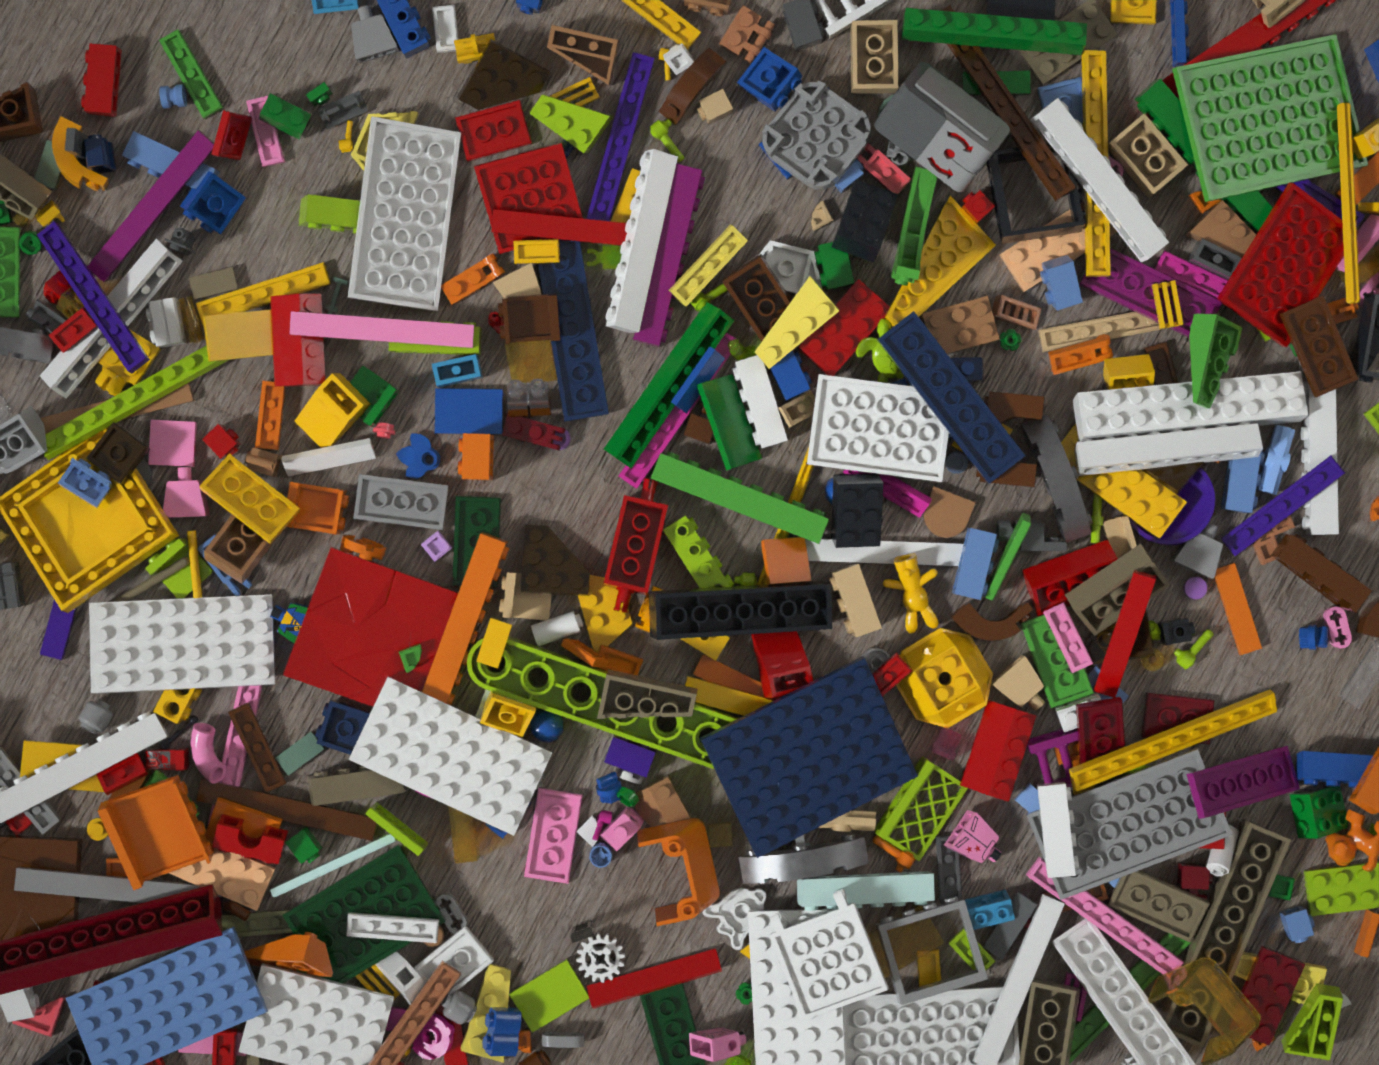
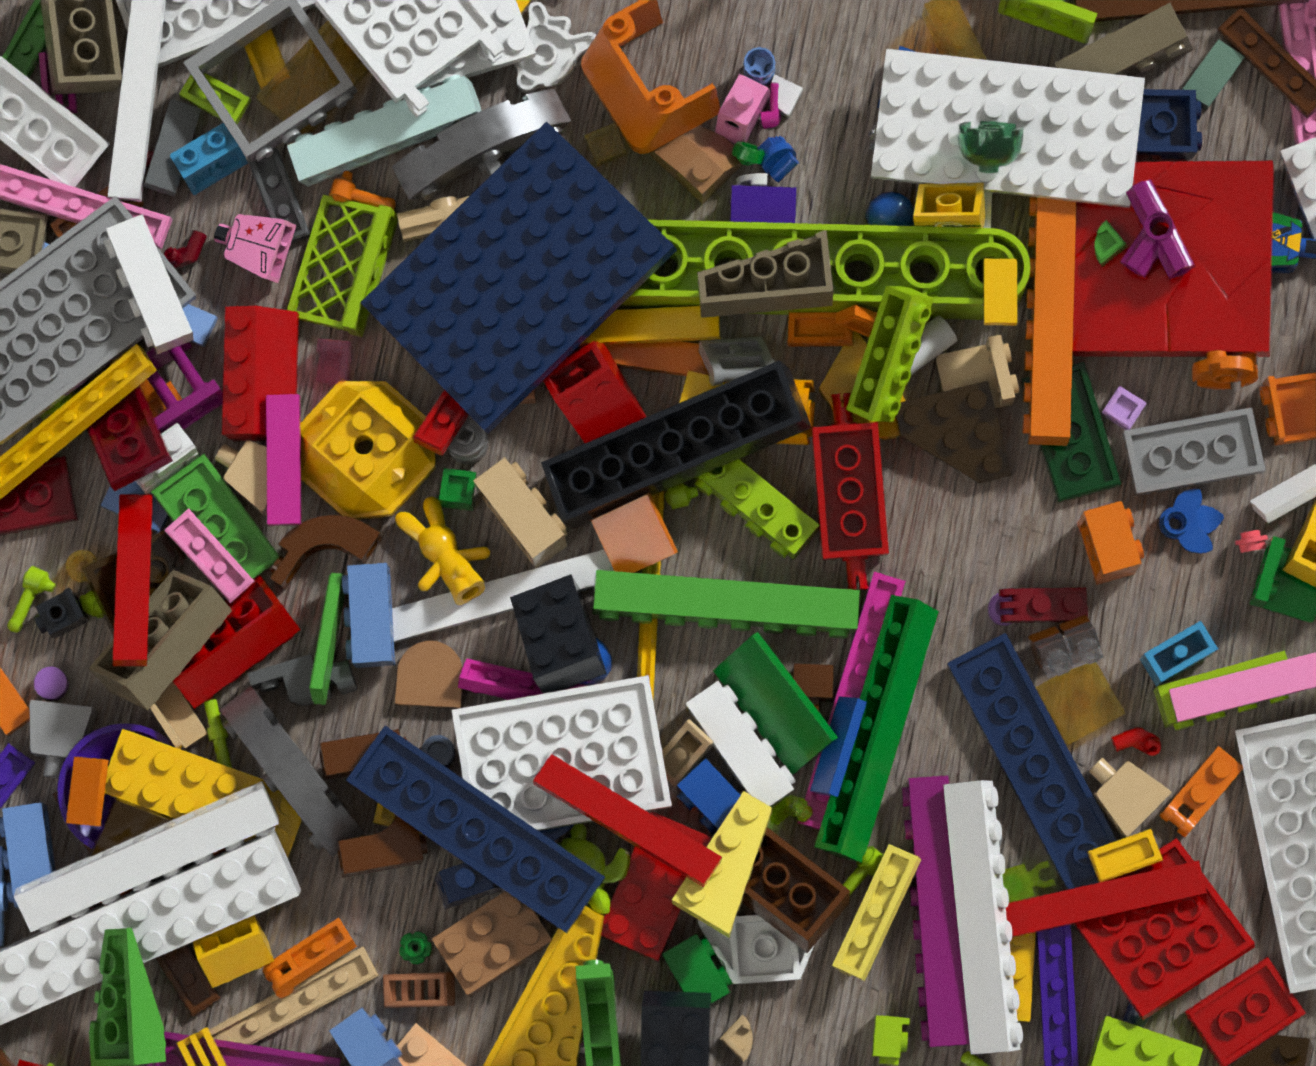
camera: 170 degrees right, 10 degrees down
(386, 644) = (1149, 247): none -> magenta piece
(467, 745) = (990, 144): none -> clear green cylinder
(468, 411) = (1143, 606): blue tile -> none
(529, 318) = (1103, 757): reddish brown panel -> none
(553, 835) = (832, 74): bright pink tile -> none
(580, 624) = (890, 354): none -> lime brick
(680, 662) = (733, 354): none -> light grey plate
(725, 185) = (889, 1038): none -> lime brick
(851, 371) = (627, 820): none -> red tile
(891, 630) = (457, 489): none -> green panel
(1001, 685) = (283, 459): none -> dark pink tile
(1022, 849) = (188, 254): none -> dark red arm
(1194, 503) = (87, 791): none -> orange tile

